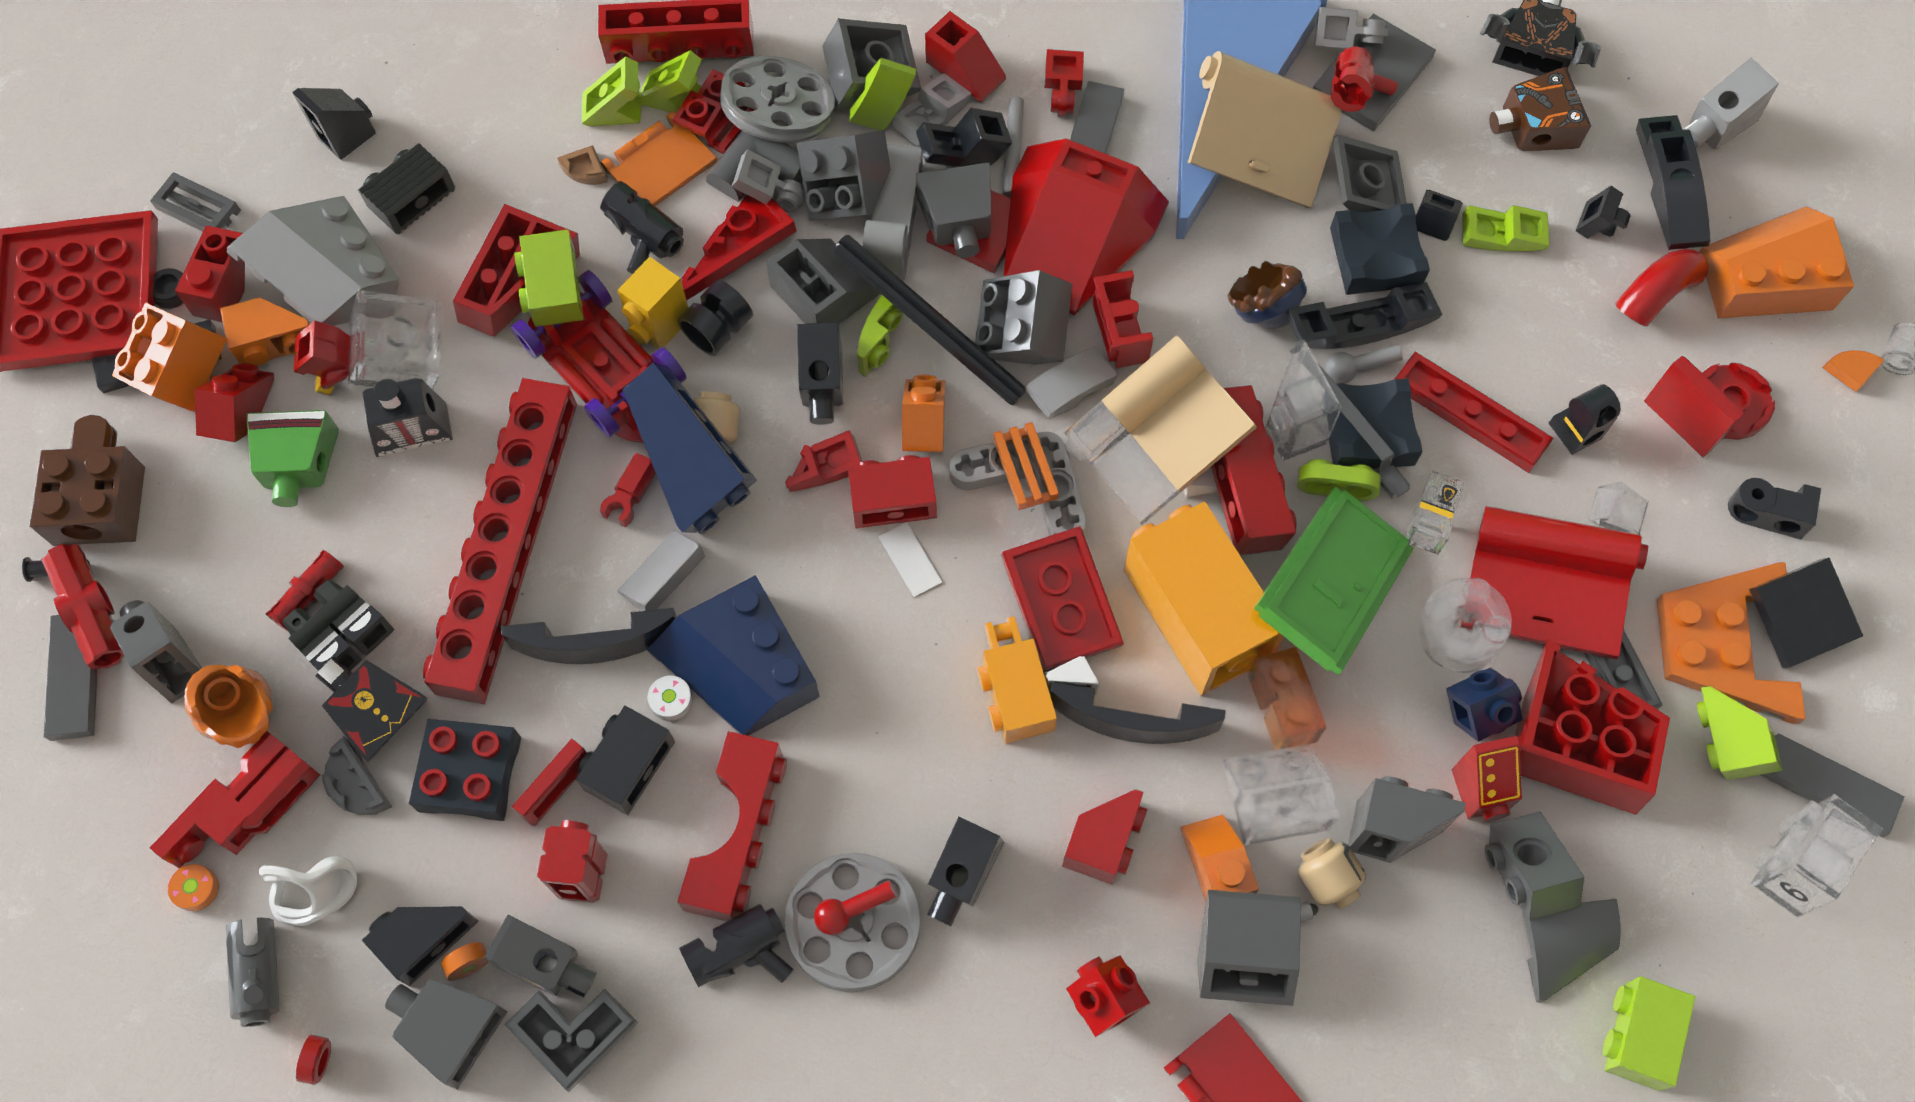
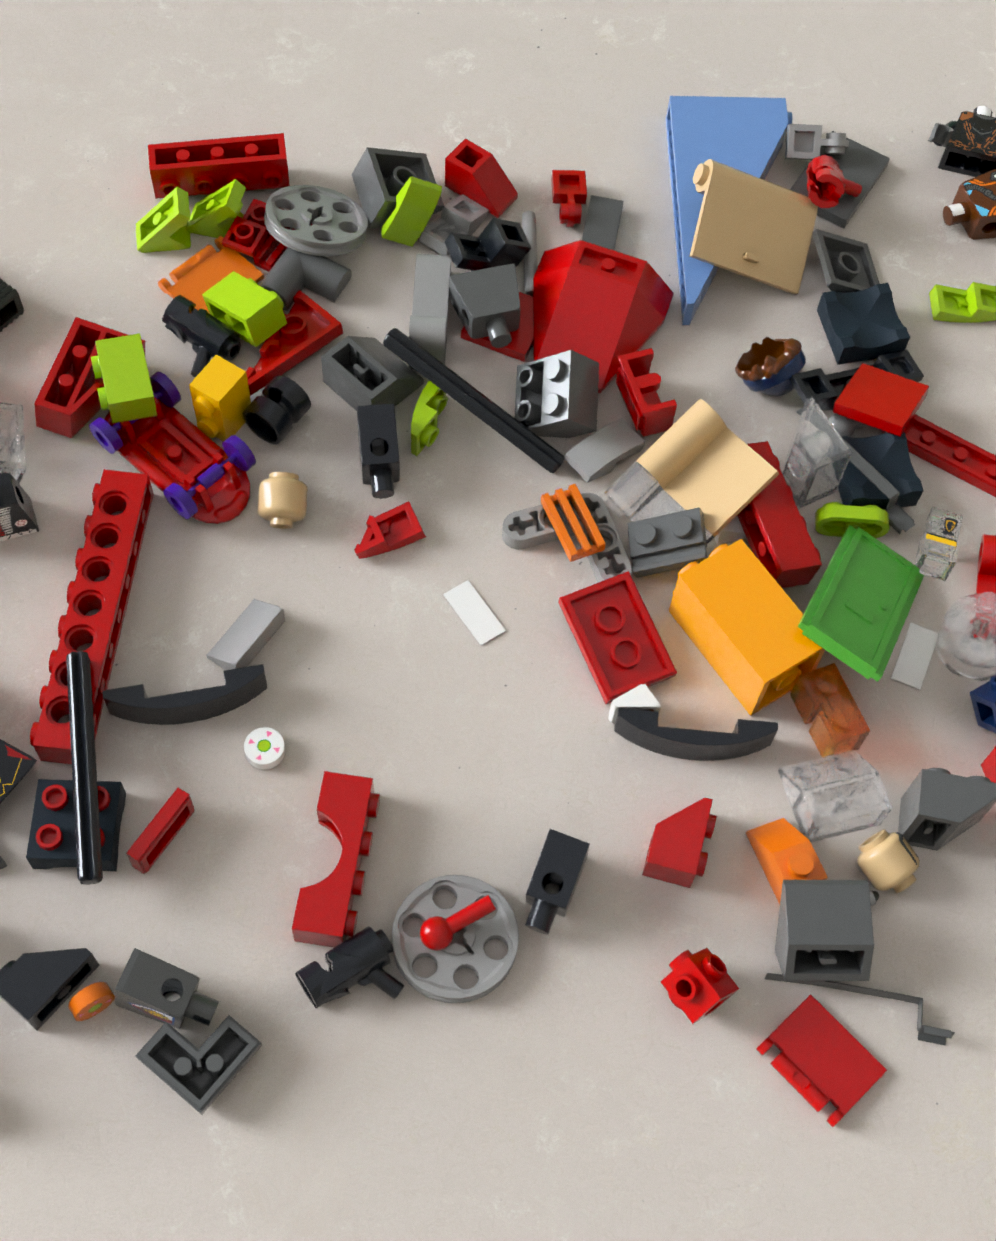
camera: 10 degrees left, 5 degrees down
(444, 1027) = (76, 1063): dark grey torso -> none
(474, 711) = (84, 769): none -> black axle
(572, 862) = (188, 900): red brick -> none
(583, 166) = (142, 287): medium nougat tile -> none
(624, 759) = (228, 805): black brick -> none
(629, 489) = (211, 563): red bar -> none
(686, 450) = (264, 525): dark blue slope -> none
(691, 198) = (246, 308): none -> lime brick
(738, 658) = (326, 706): dark blue wedge -> none
(760, 180) = (308, 289): light grey plate -> none
(843, 174) = (383, 279): dark grey slope -> none
(892, 491) = (453, 552): red brick -> none
(923, 414) = (475, 483): orange slope -> none
(1016, 685) = (584, 714): light orange brick -> none
(1128, 495) = (667, 542): none -> dark grey plate
(1350, 1065) = (925, 1033): none -> dark grey piece
(1387, 341) = (880, 399): none -> red tile
(1393, 639) = (915, 656): none -> white sticker
(1437, 215) = (909, 294): black slope -> none

